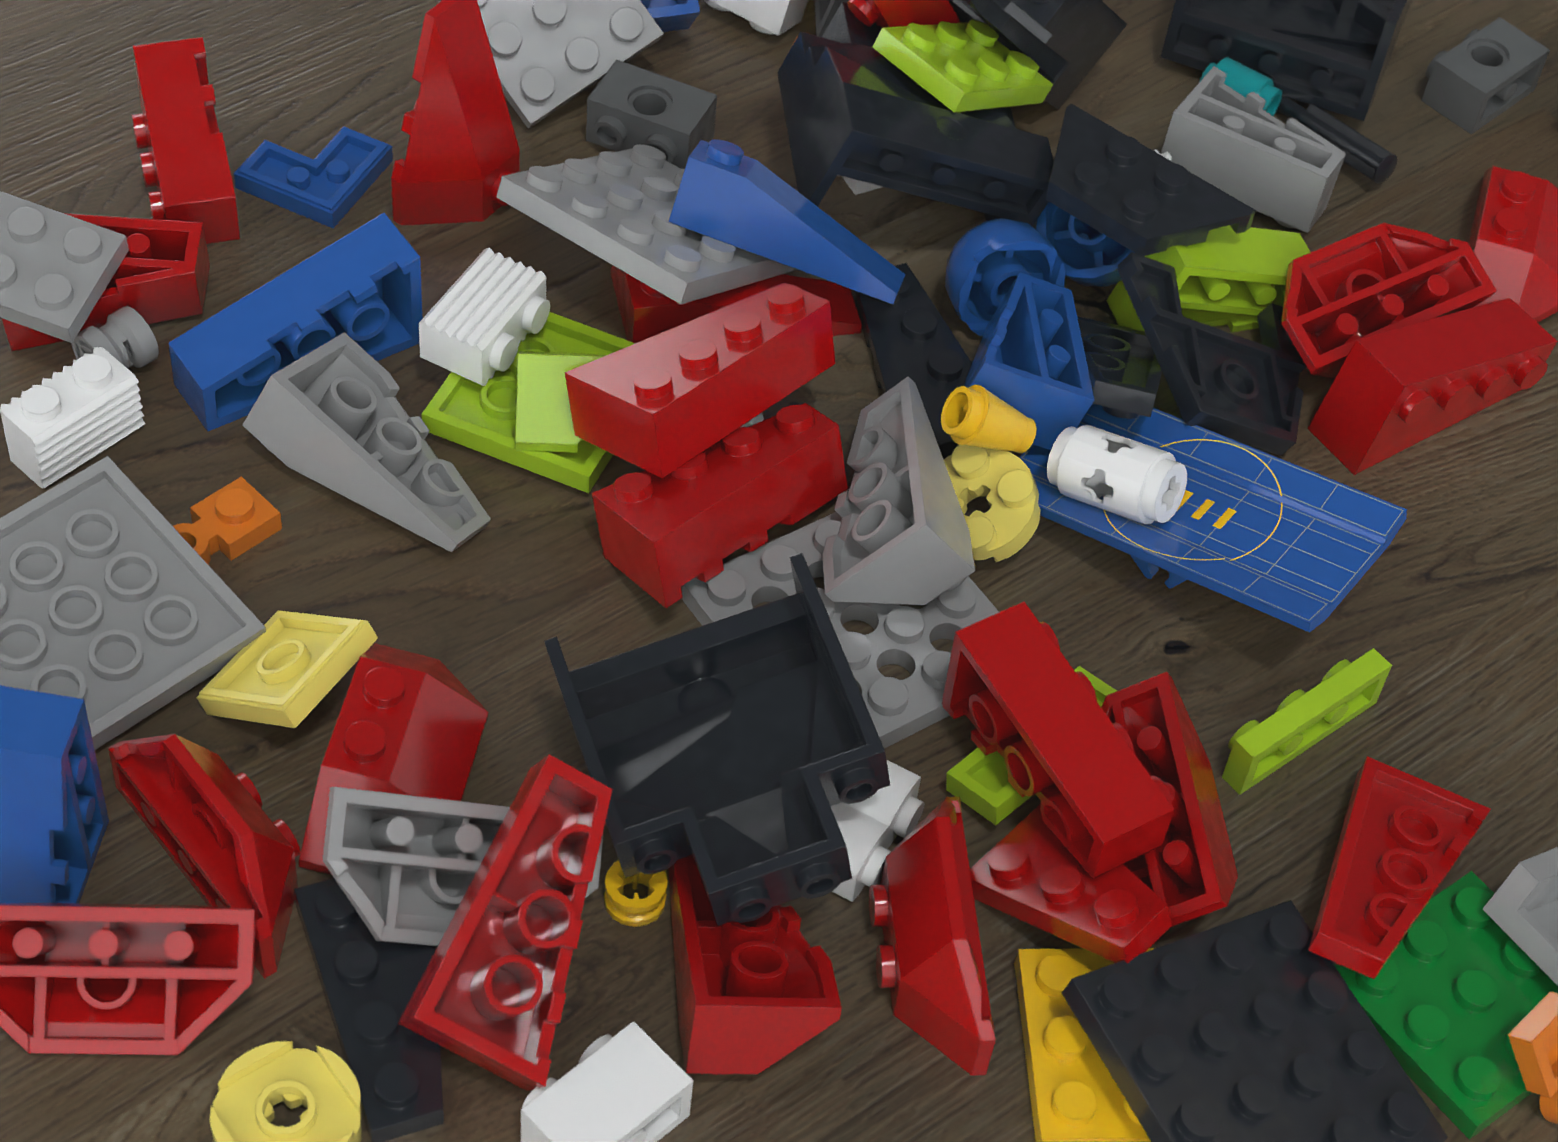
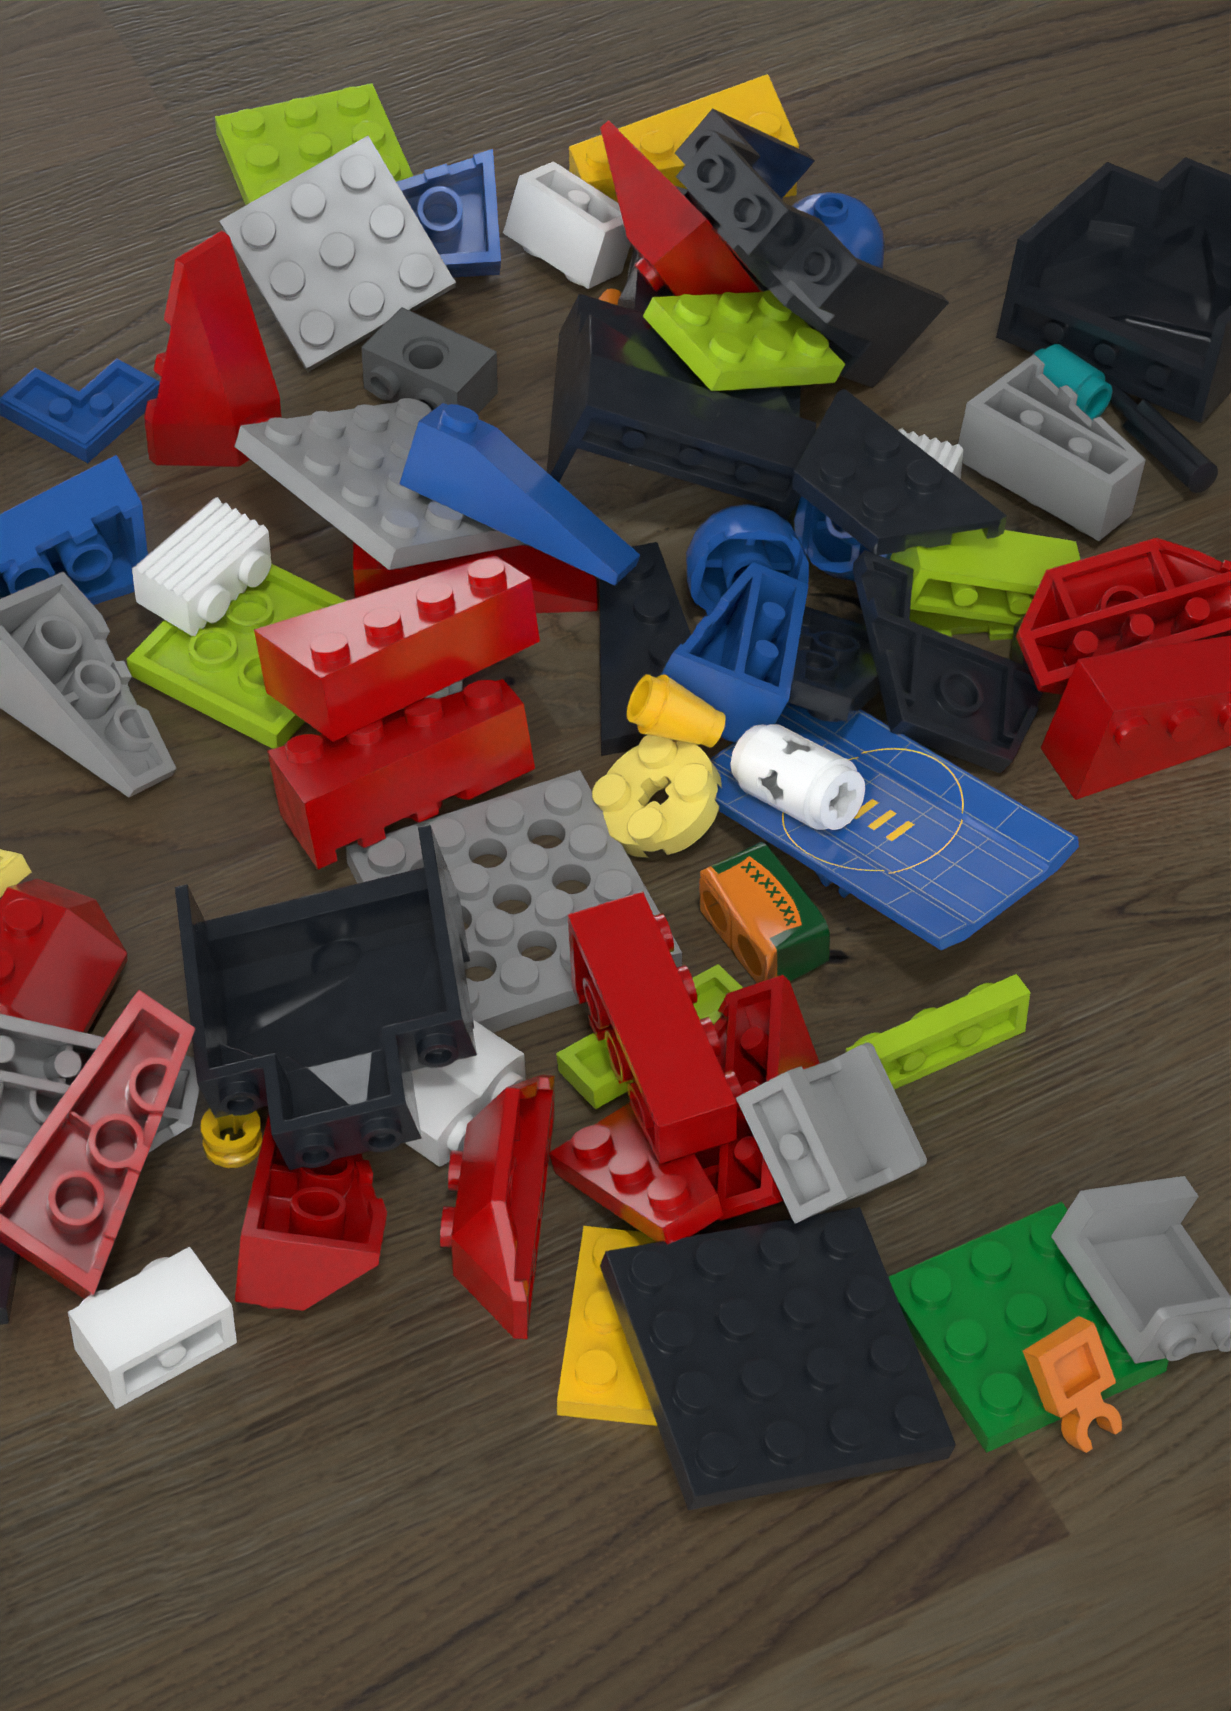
camera: 15 degrees right, 0 degrees up
(543, 401) = (236, 661): lime slope -> none
(901, 517) = (570, 798): light grey wedge -> none
(1111, 614) = (764, 915): none -> piece
(1256, 827) = (832, 1131): none -> light grey panel
(1389, 863) = (973, 1182): red wing -> none

